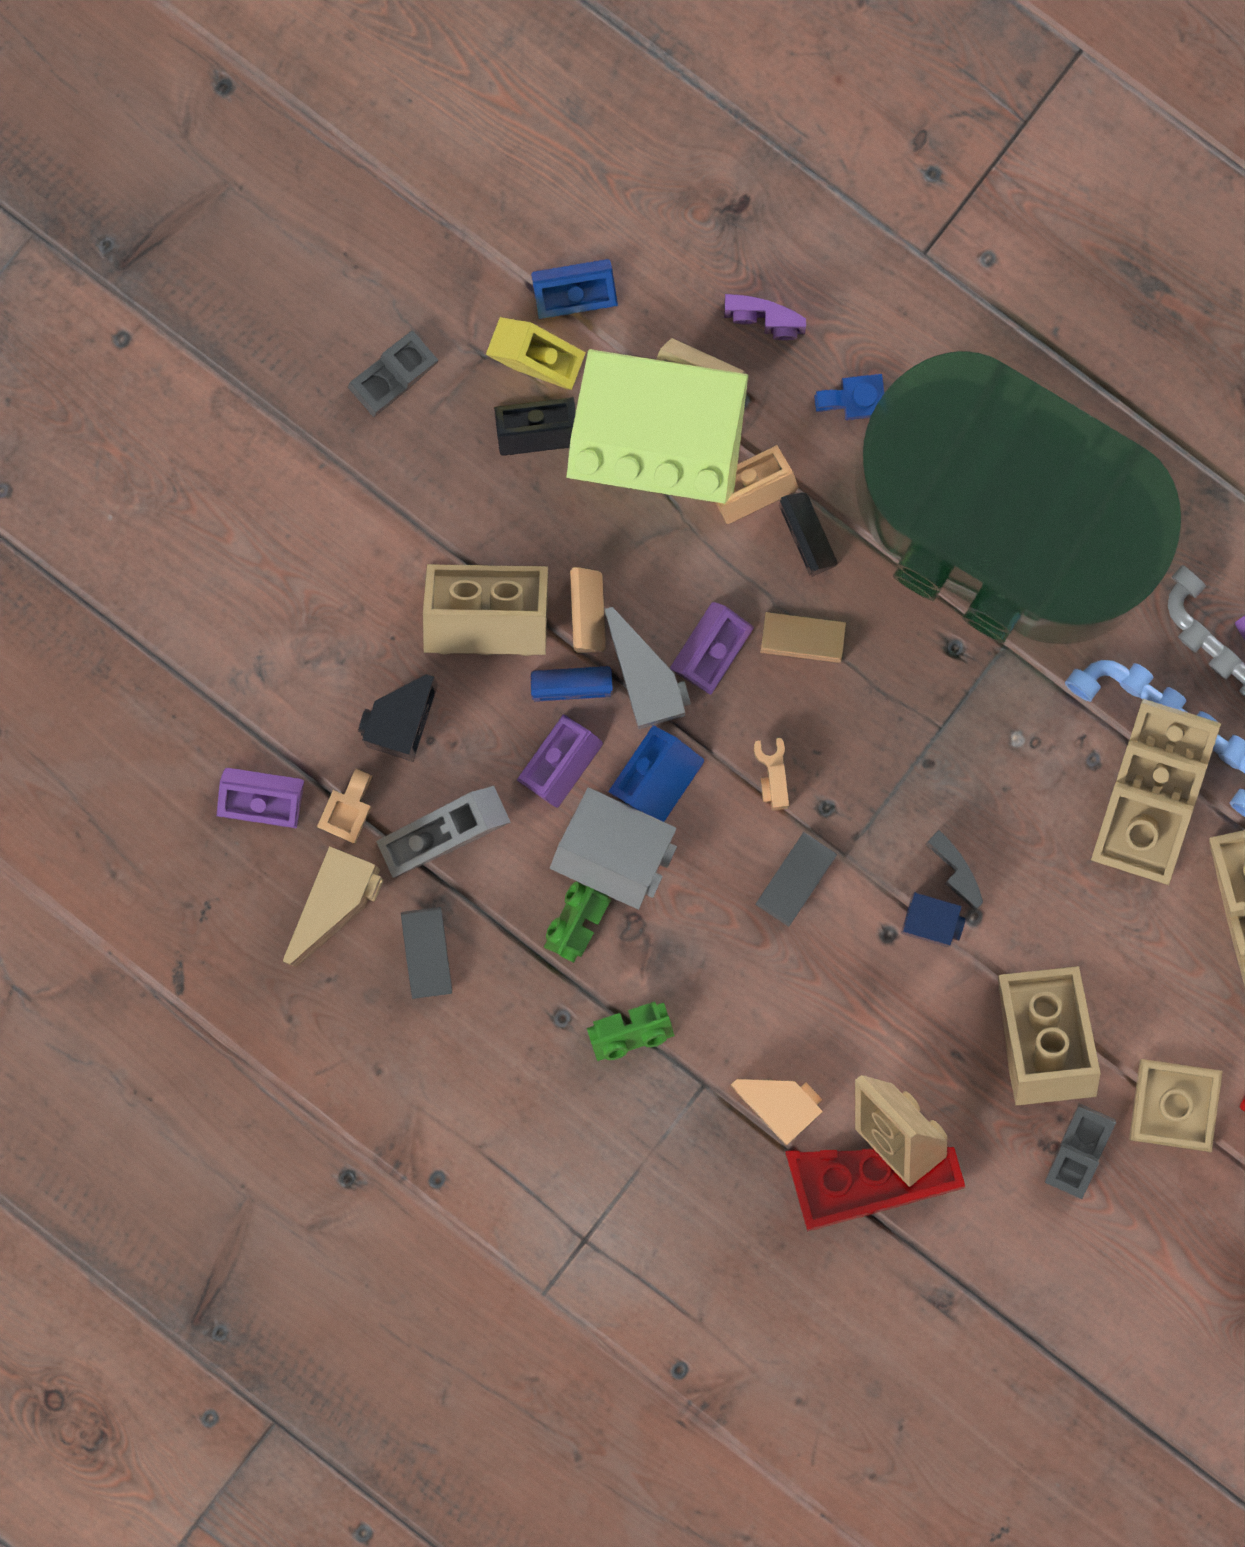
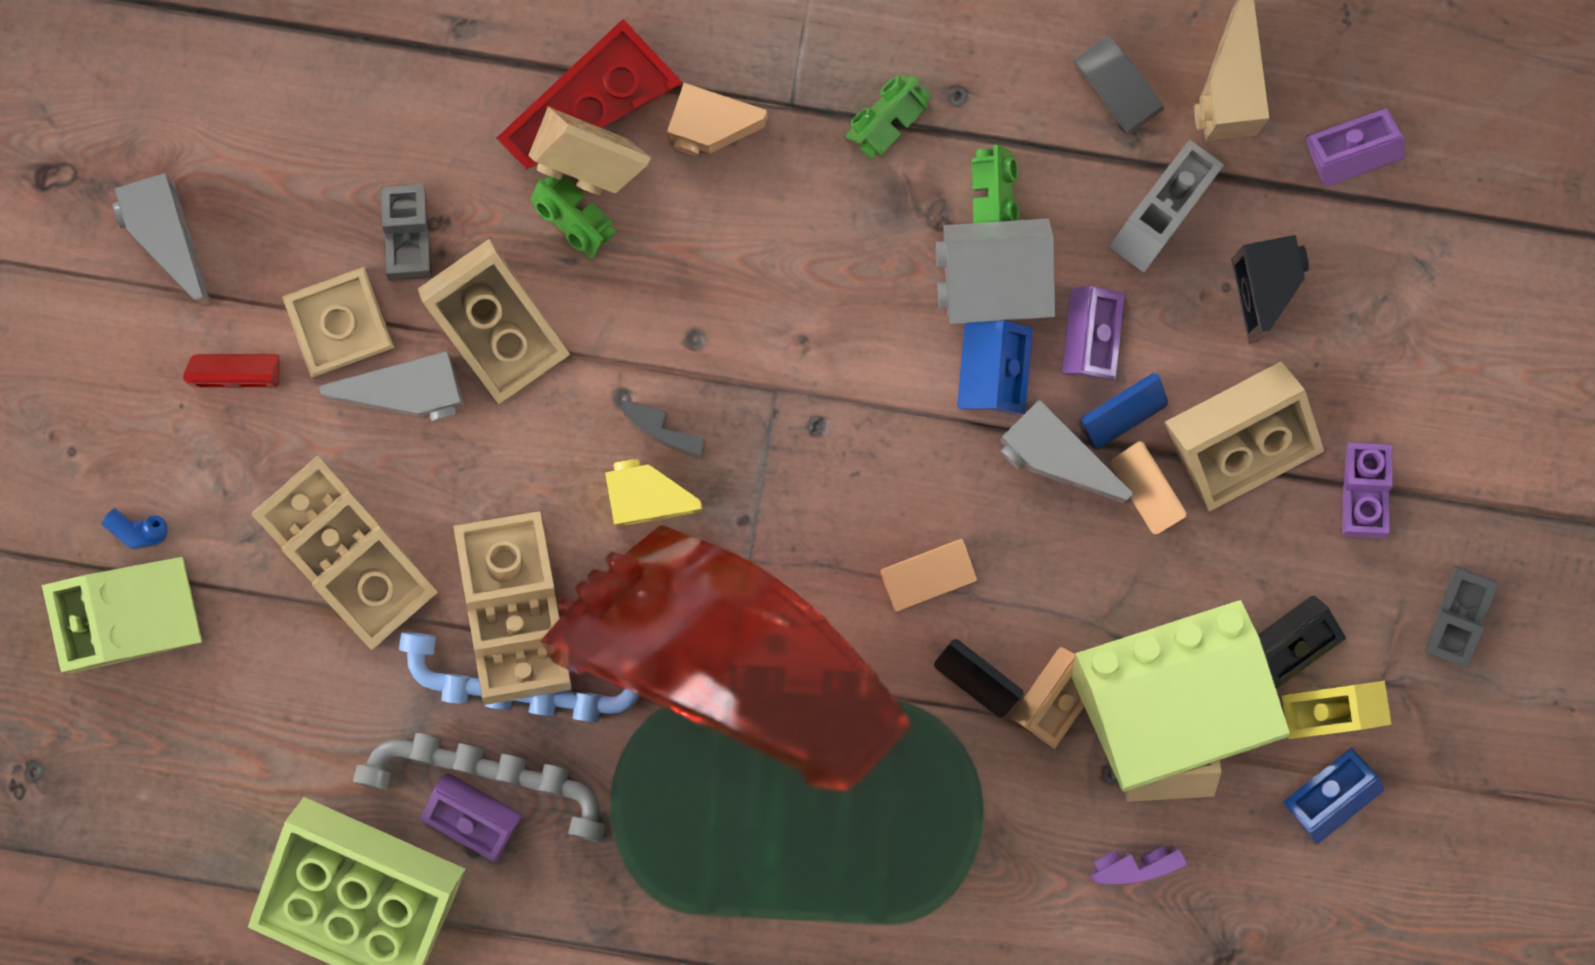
camera: 150 degrees right, 0 degrees up
(345, 812) = (1268, 173): light nougat plate -> none
(411, 514) = (1366, 490): none -> medium lavender slope
(712, 647) = (1009, 518): medium lavender slope -> none
(774, 786) = (878, 418): light nougat plate -> none
(796, 879) = (809, 340): dark grey slope -> none
(857, 396) = (1002, 837): blue plate -> none
(933, 920) = (658, 370): dark blue brick -> none
(933, 1074) = (585, 229): none -> bright green hinge
(997, 823) = (646, 495): none -> light yellow slope
(1010, 644) = (731, 653): none -> clear red windscreen
(1144, 1014) = (412, 388): none -> light grey slope

